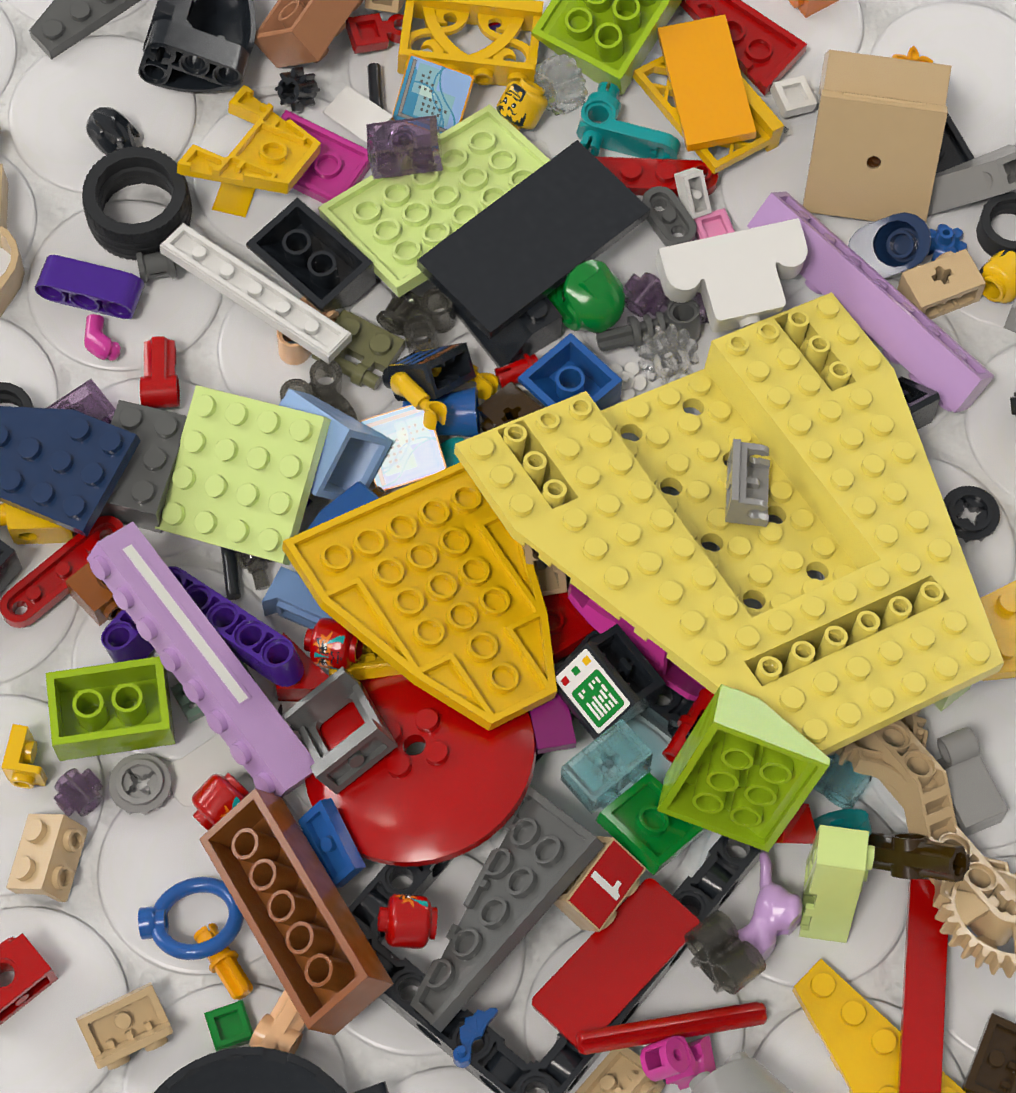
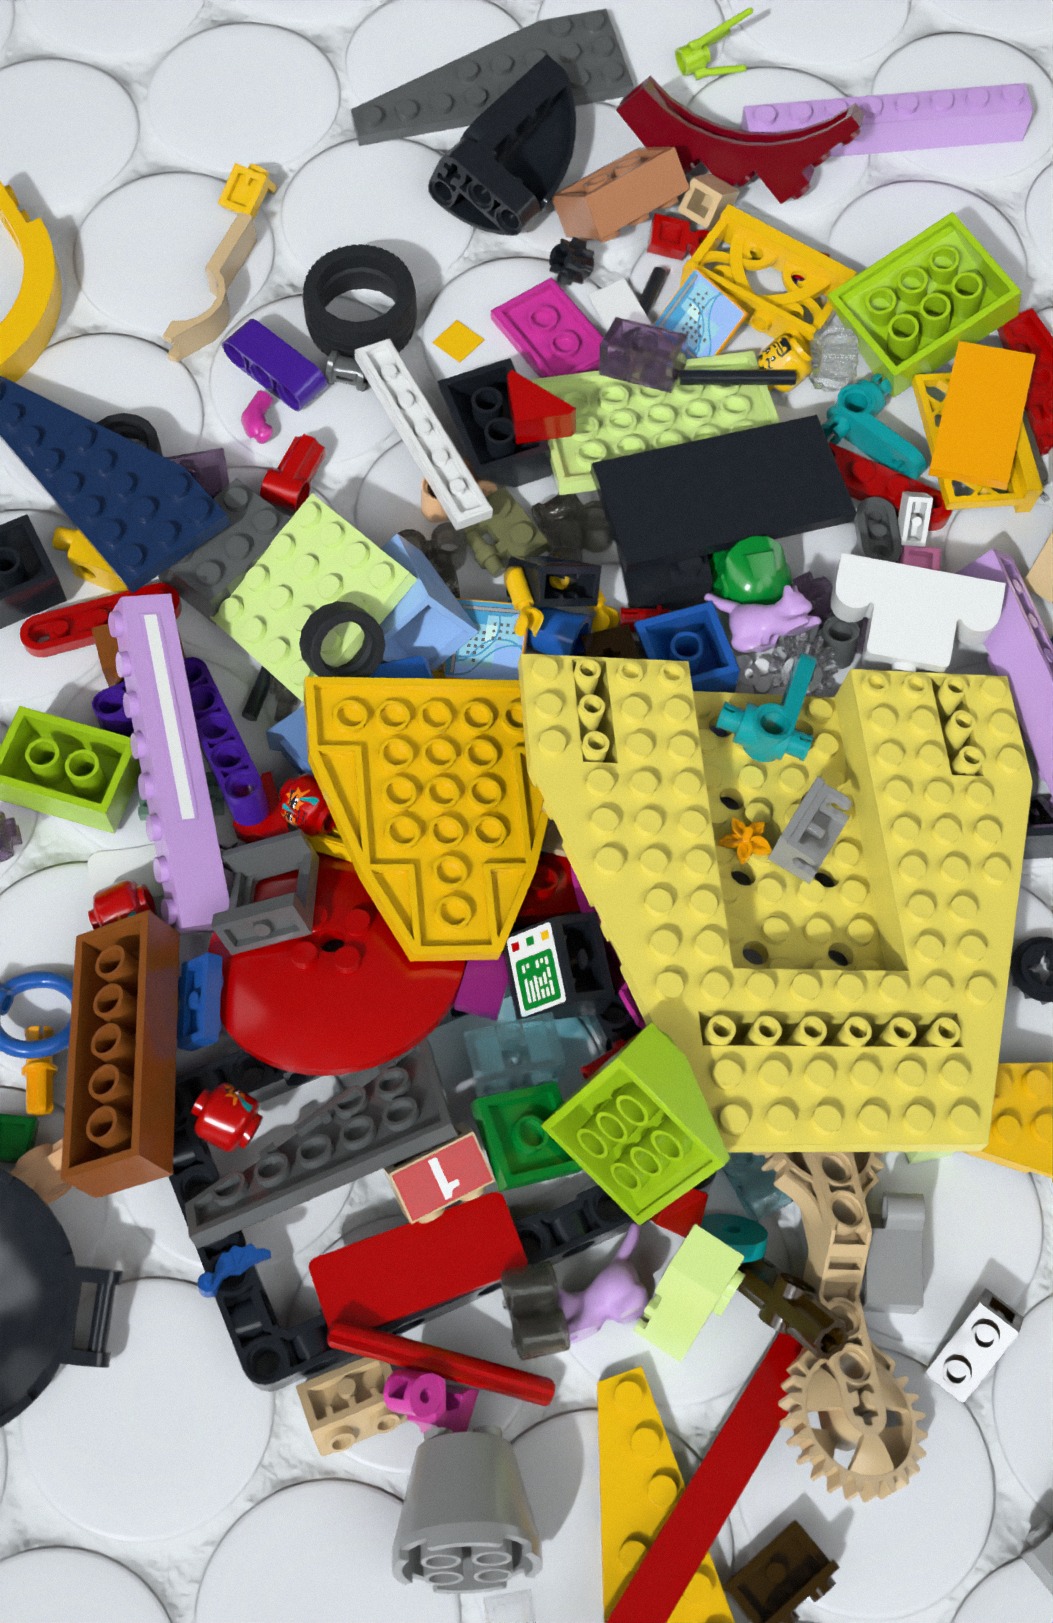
camera: 25 degrees right, 0 degrees up
(110, 130) = (374, 226): black piece -> none
(143, 767) = (43, 848): light grey gear -> none
(267, 157) = (502, 311): yellow wing -> none
(276, 493) = (327, 618): none -> black tyre
(347, 235) = (538, 413): none -> red slope
(492, 133) = (737, 377): none -> black bar
(619, 335) = (759, 625): none -> lavender animal
(675, 417) = (769, 729): none -> teal piece
(704, 514) = (746, 839): none -> light orange plant

